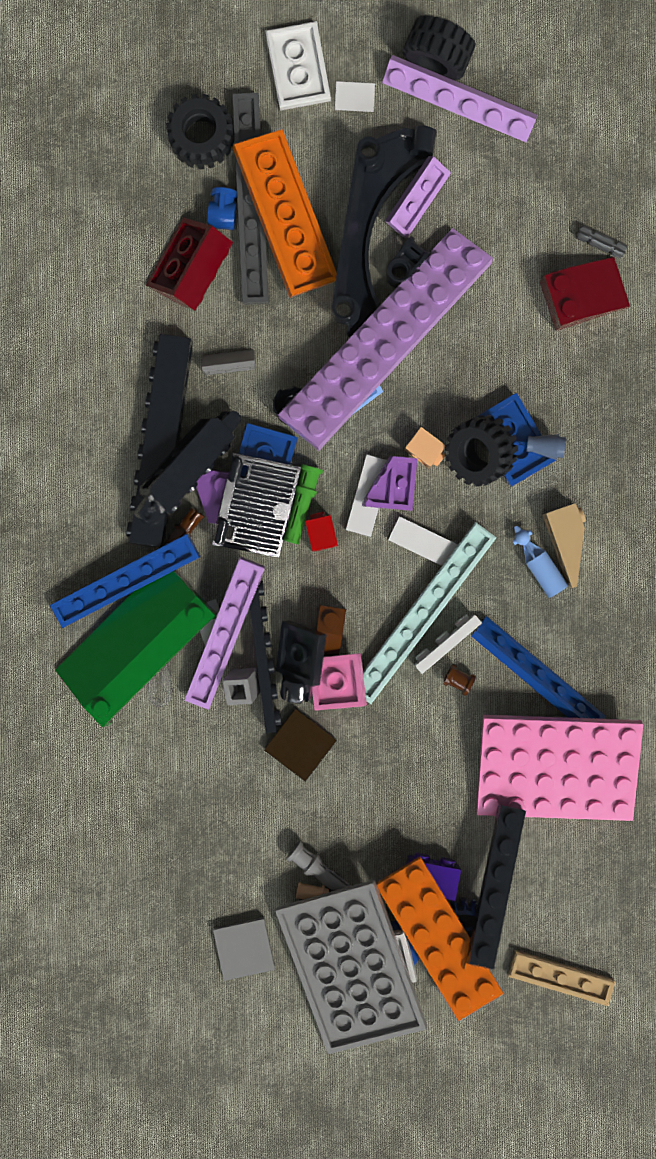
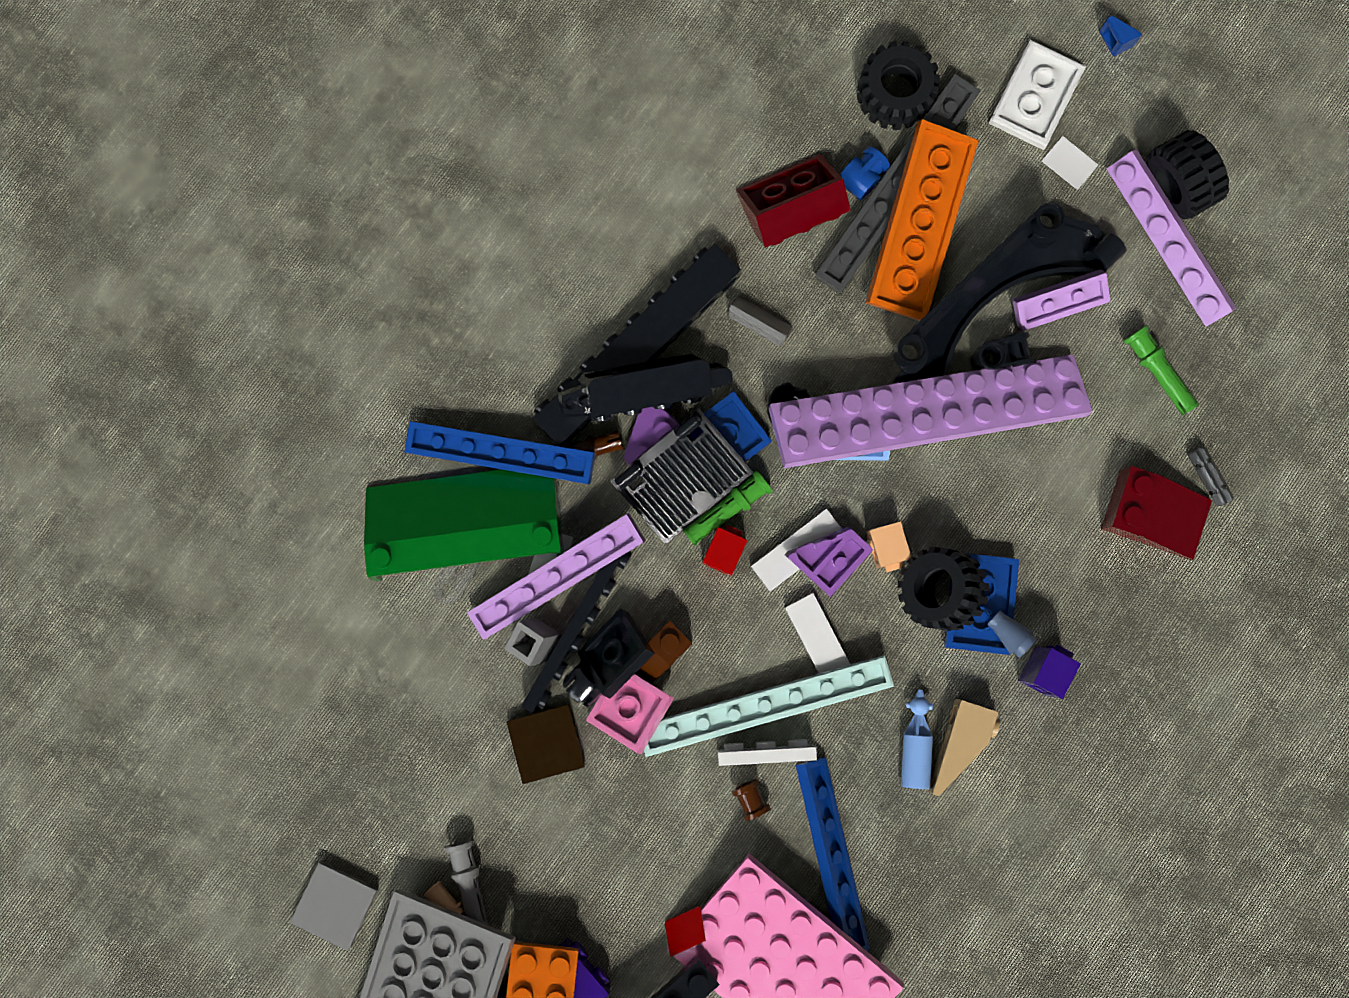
camera: 40 degrees right, 5 degrees down
(479, 794) = (685, 931): none -> red sticker
(506, 190) = (1153, 358): none -> bright green pin
(589, 451) = (1050, 671): none -> dark purple brick

